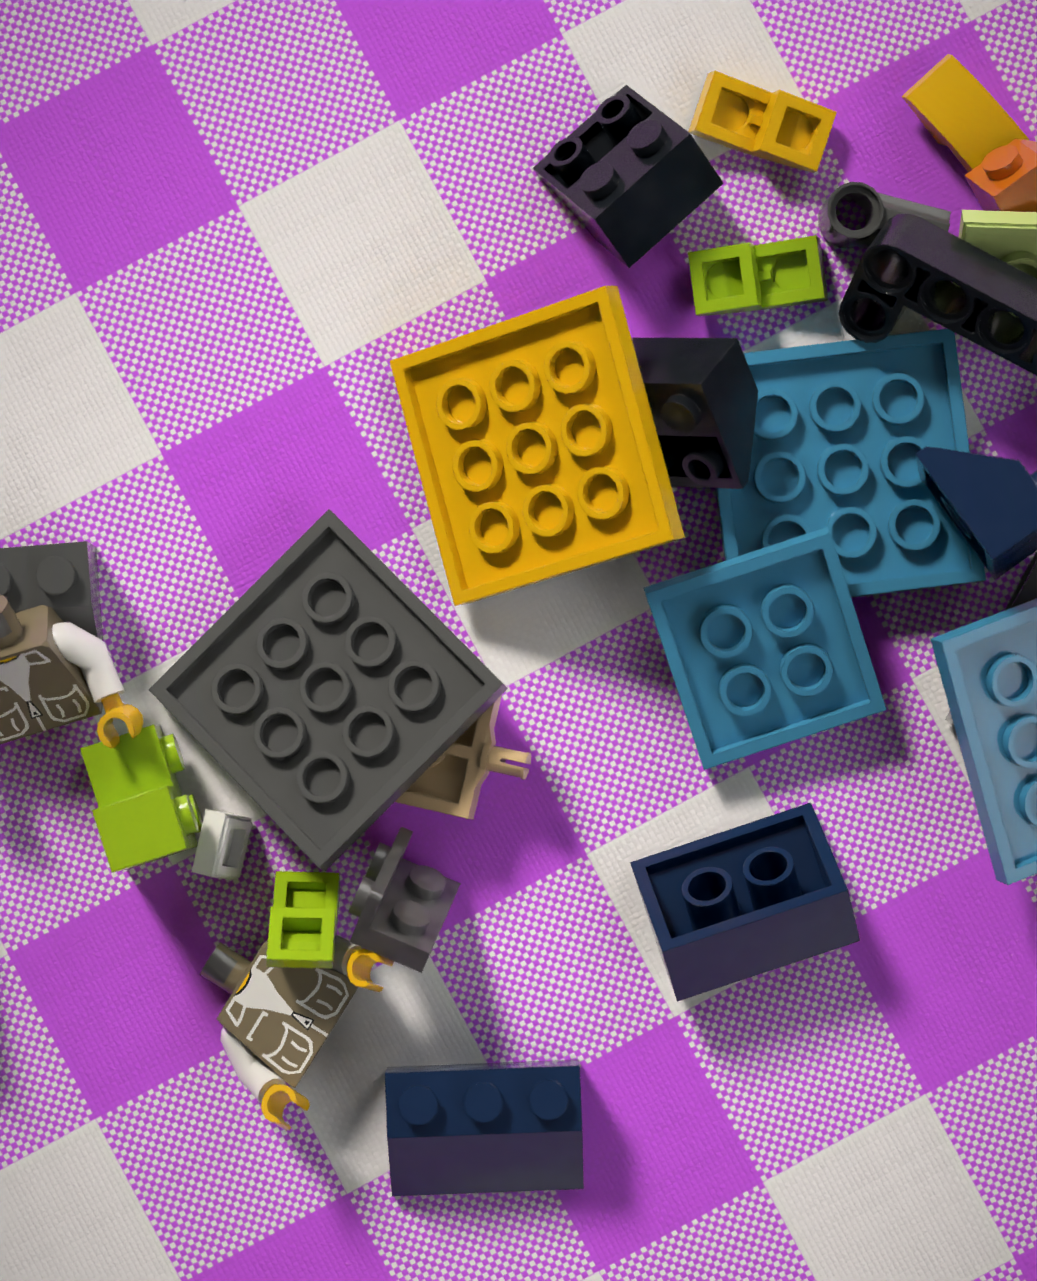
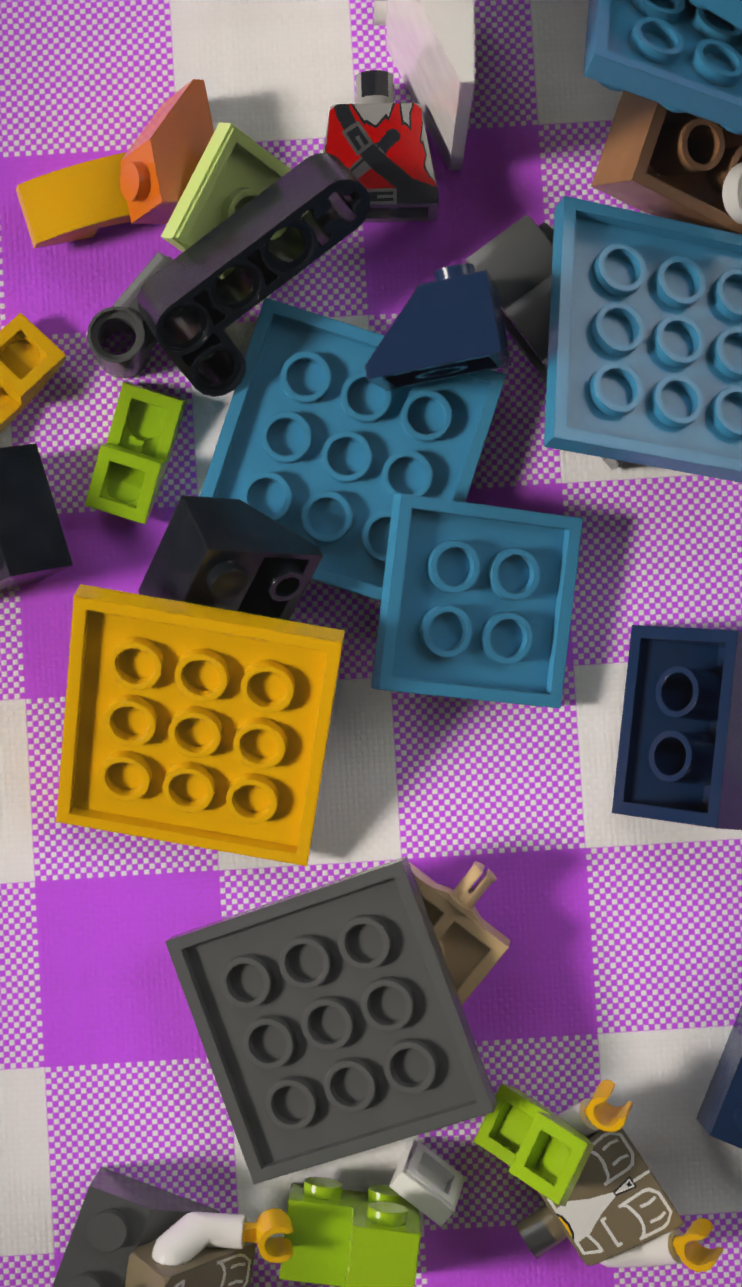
camera: 60 degrees left, 0 degrees up
(401, 905) = (564, 1045): flat silver bracket -> none

